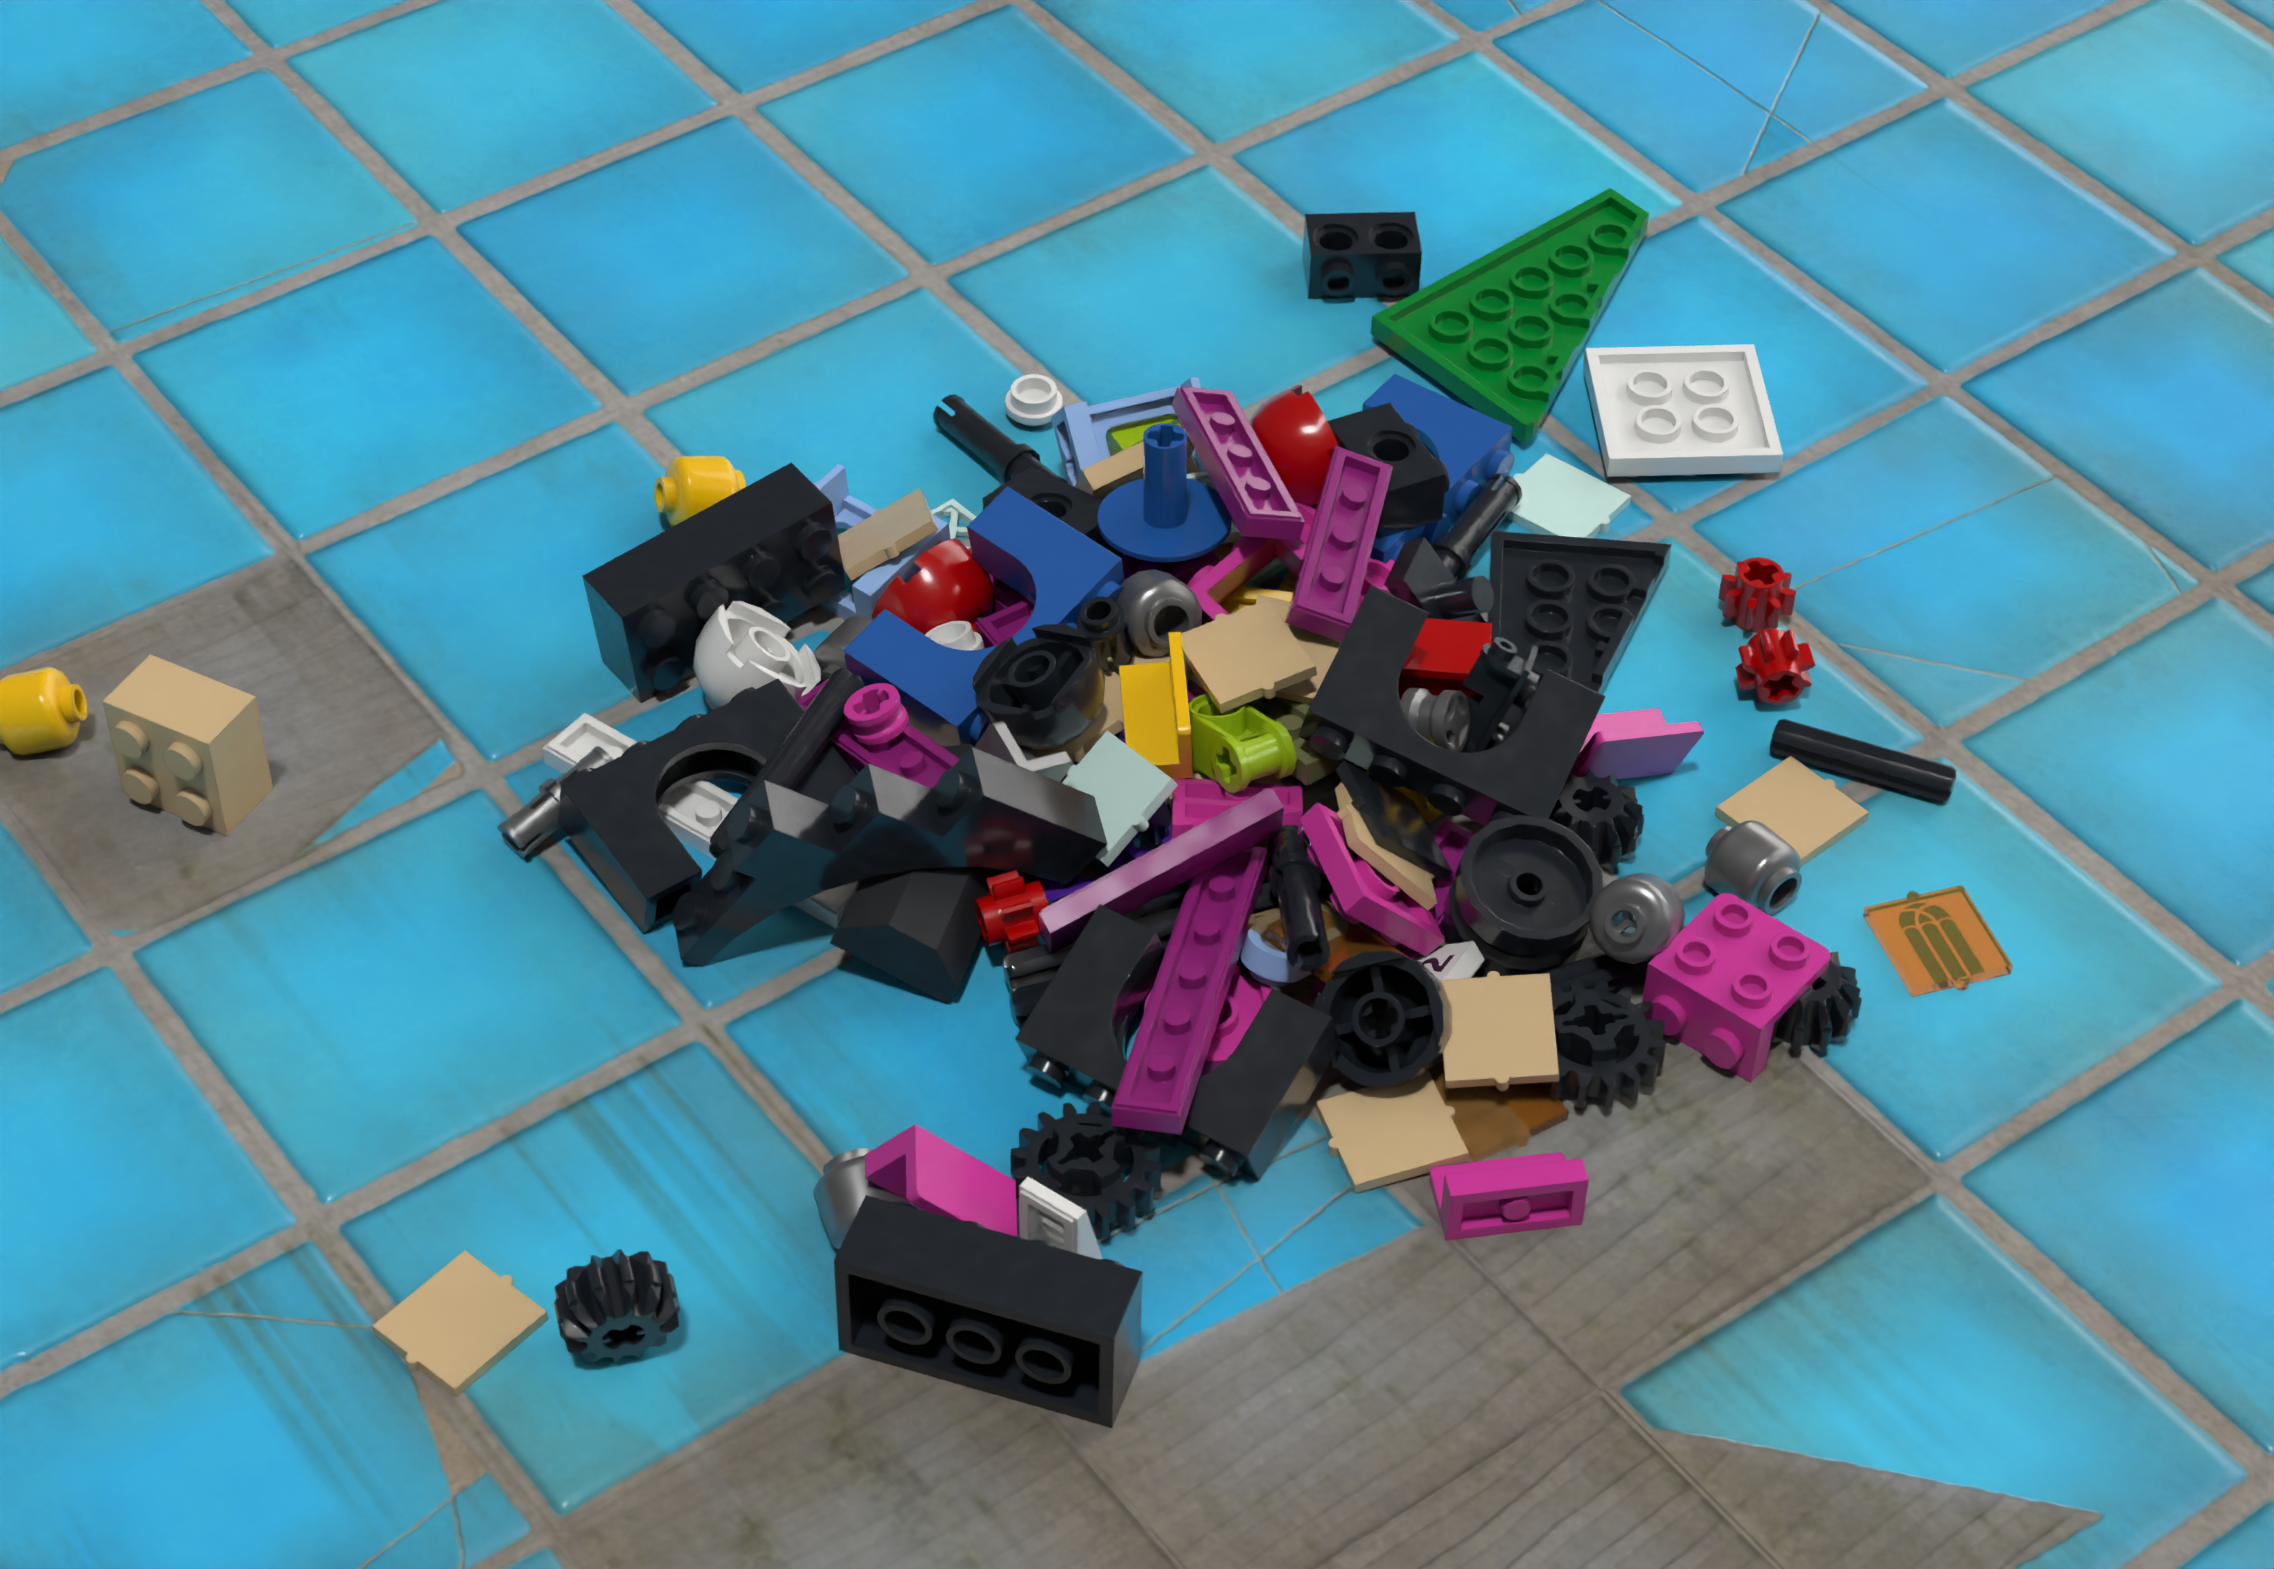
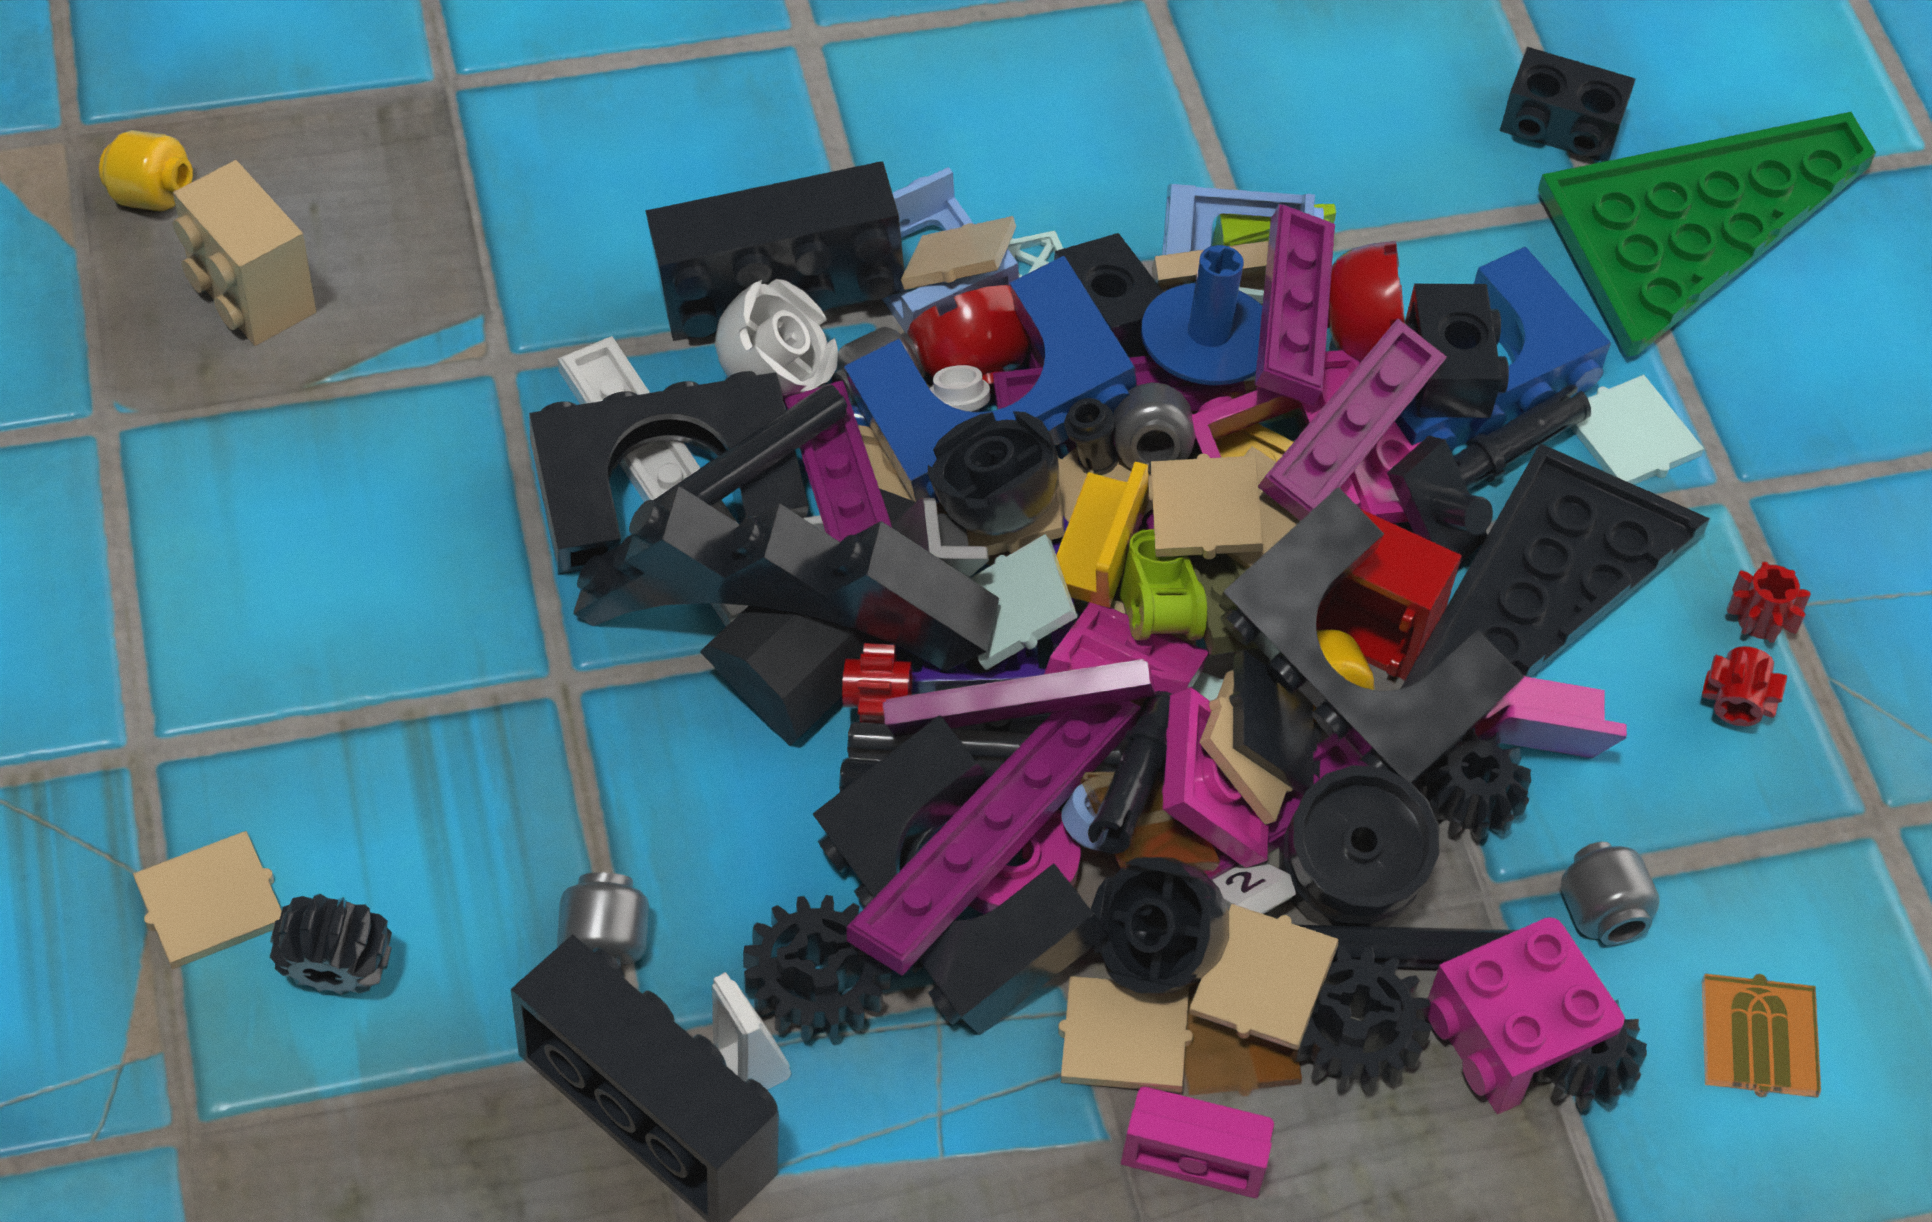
camera: 20 degrees right, 10 degrees up
(540, 816) = (512, 430): flat silver pin -> none
(694, 485) = (820, 145): yellow head -> none
(876, 714) = (842, 441): dark pink bush -> none
(943, 1180) = (667, 947): dark pink panel -> none
(987, 441) = (1123, 209): black pin -> none
(1033, 400) = (1178, 155): white plate -> none
(1438, 718) = (1357, 636): flat silver wheel -> none
(1501, 681) = (1438, 621): black hinge -> none
(1657, 915) = (1452, 912): flat silver head -> none
(1682, 410) = (1800, 376): white plate -> none
(1796, 807) = (1688, 844): tan piece -> none
(1863, 760) = (1785, 816): black axle -> none

